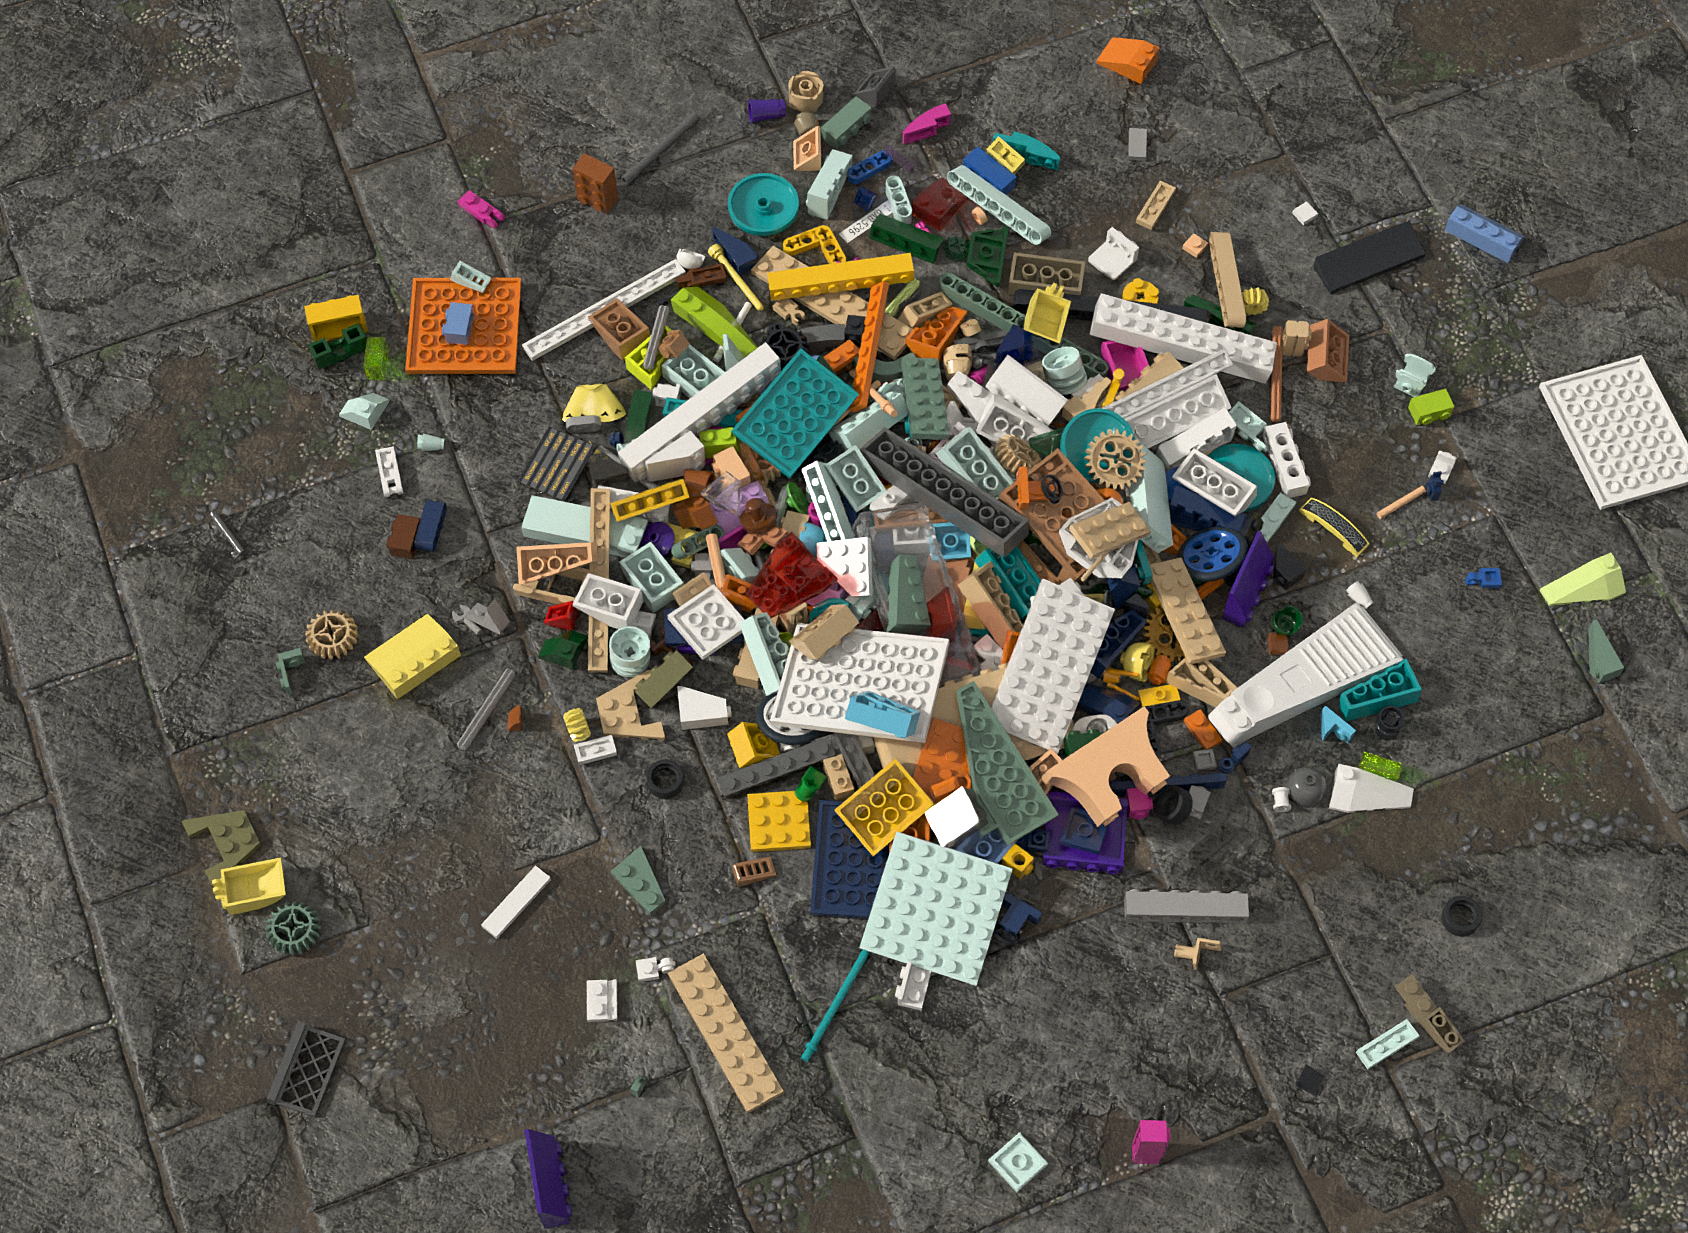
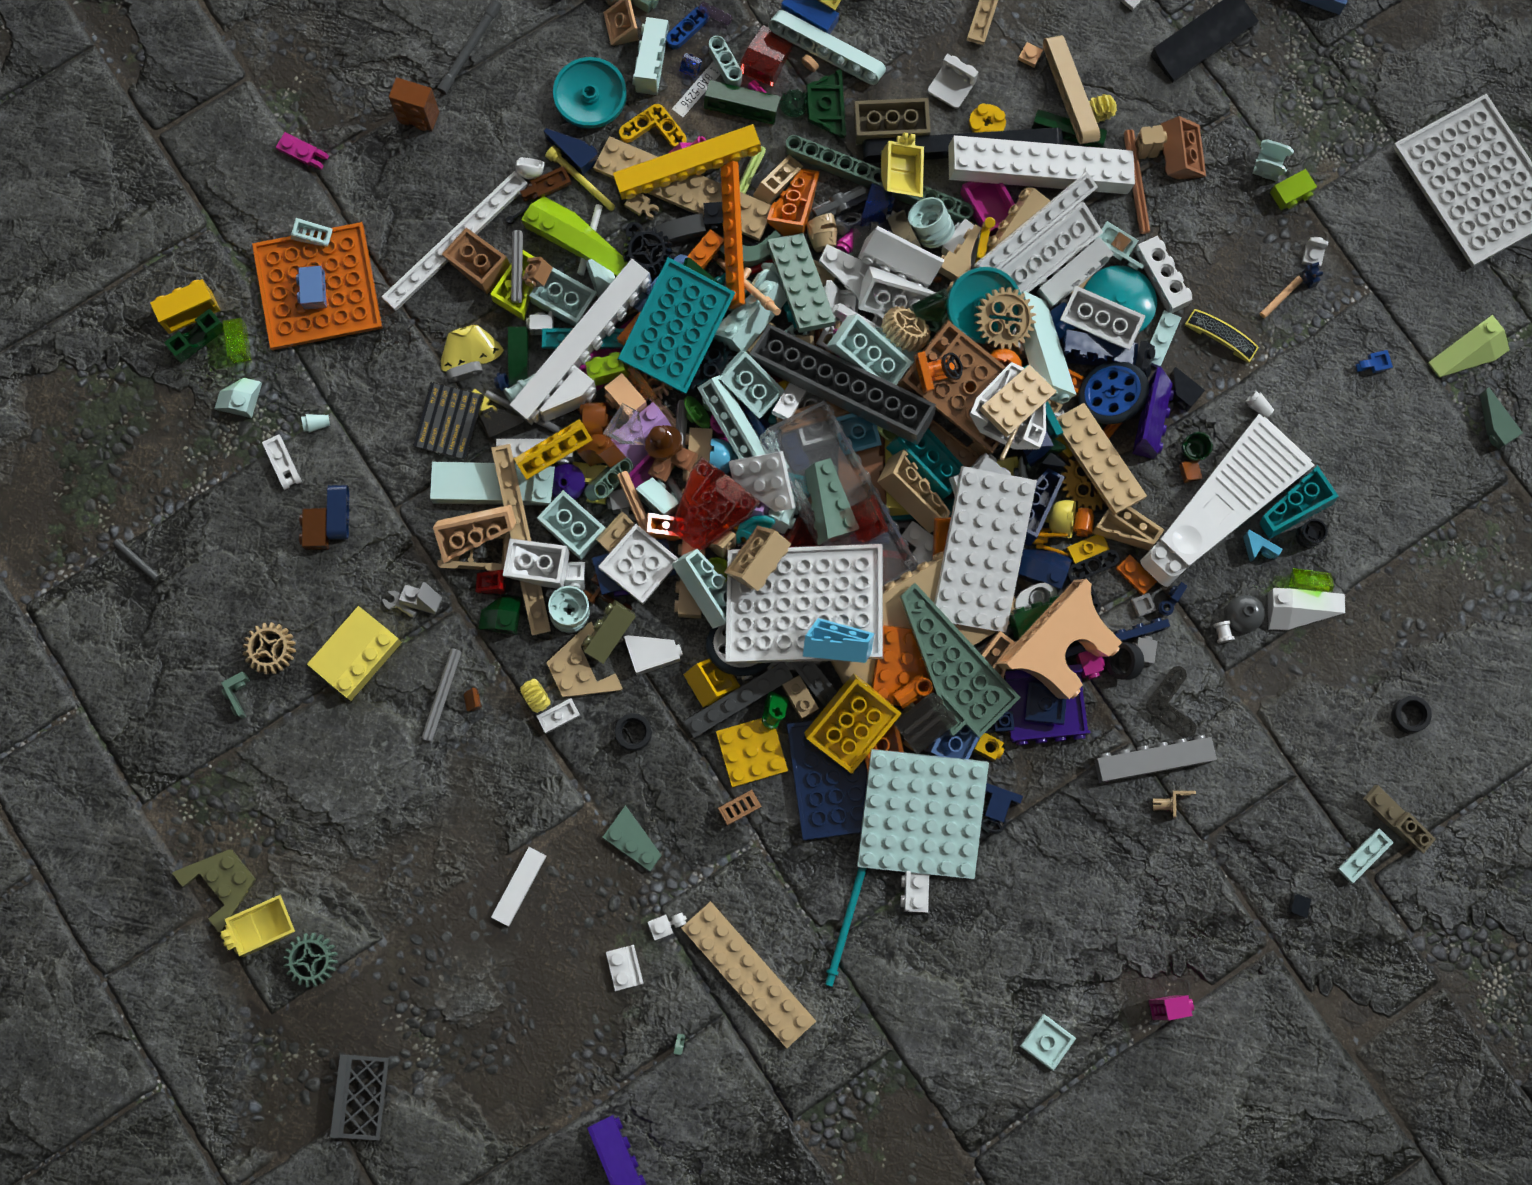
camera: 15 degrees left, 15 degrees up
(970, 327) = (827, 191): tan beam -> none
(1248, 421) = (1121, 241): none -> medium nougat hose

